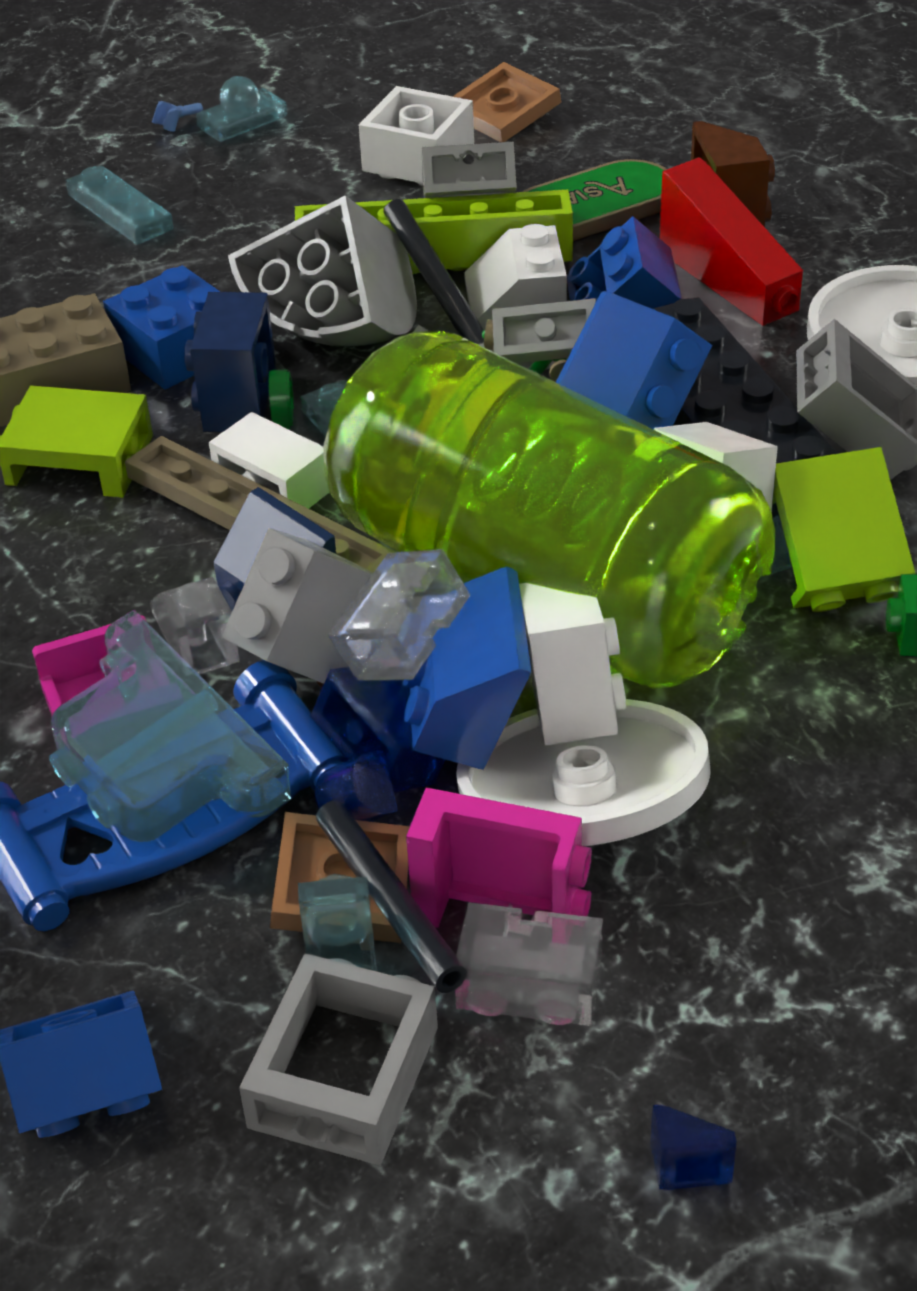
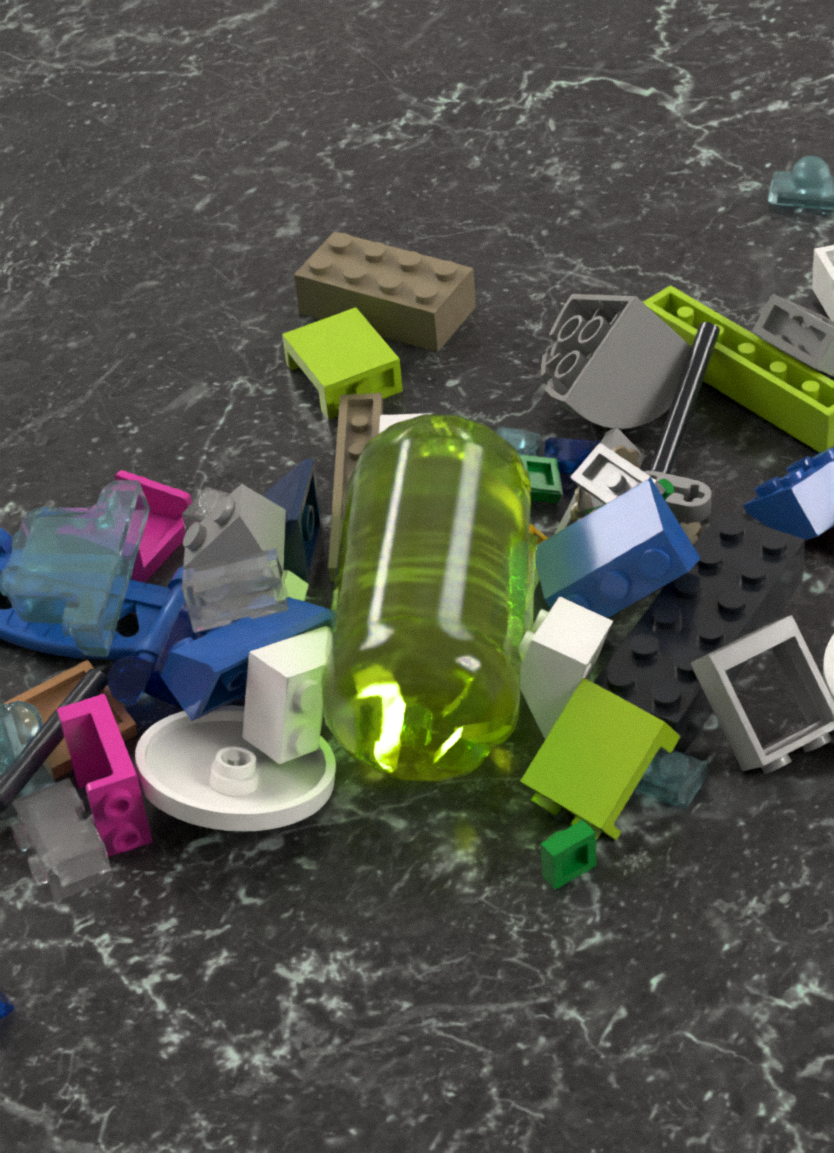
camera: 55 degrees right, 0 degrees up
(119, 204) = (627, 212): clear light blue plate -> none
(158, 321) = (501, 324): blue brick -> none
(169, 114) = (757, 158): medium blue hand -> none
(231, 358) = (477, 370): dark blue brick -> none
(281, 397) = (488, 411): green tile -> none
(517, 271) = (755, 447): white slope -> none

